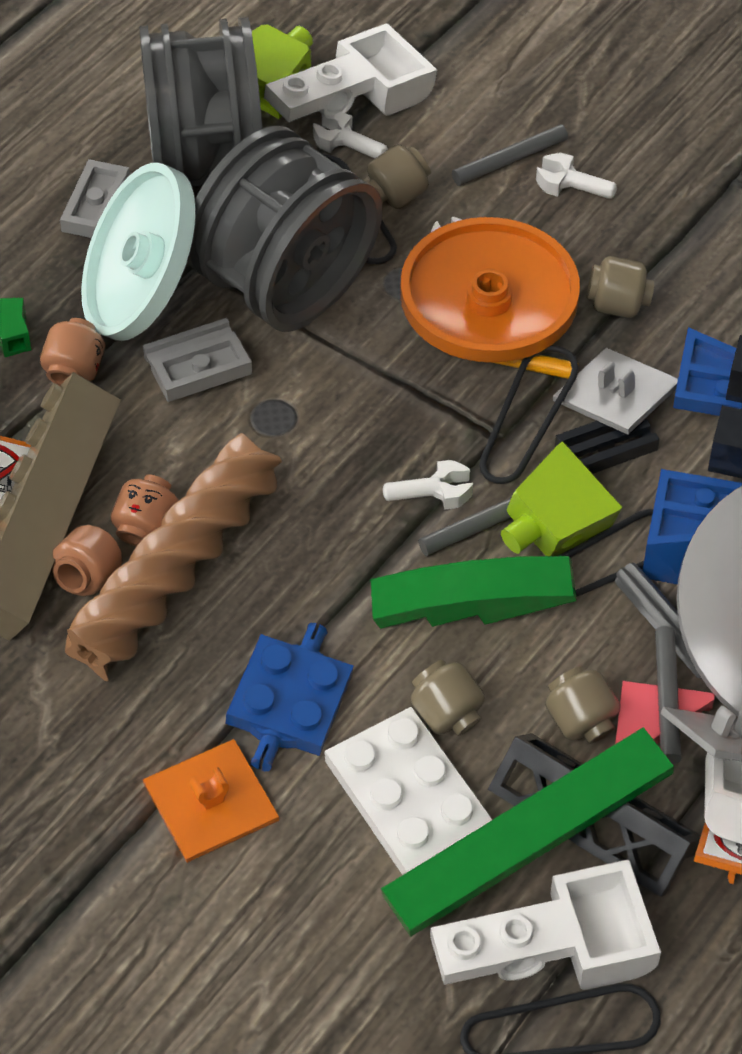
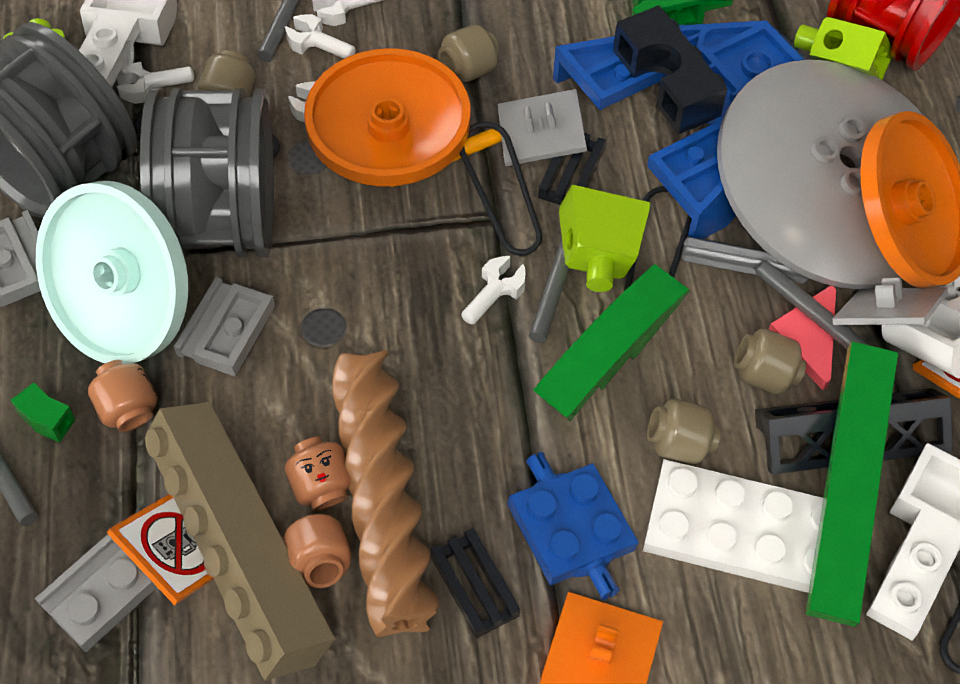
camera: 45 degrees left, 5 degrees up
(185, 643) = (456, 547): none -> black tile
(523, 181) = (313, 37): none -> white bar

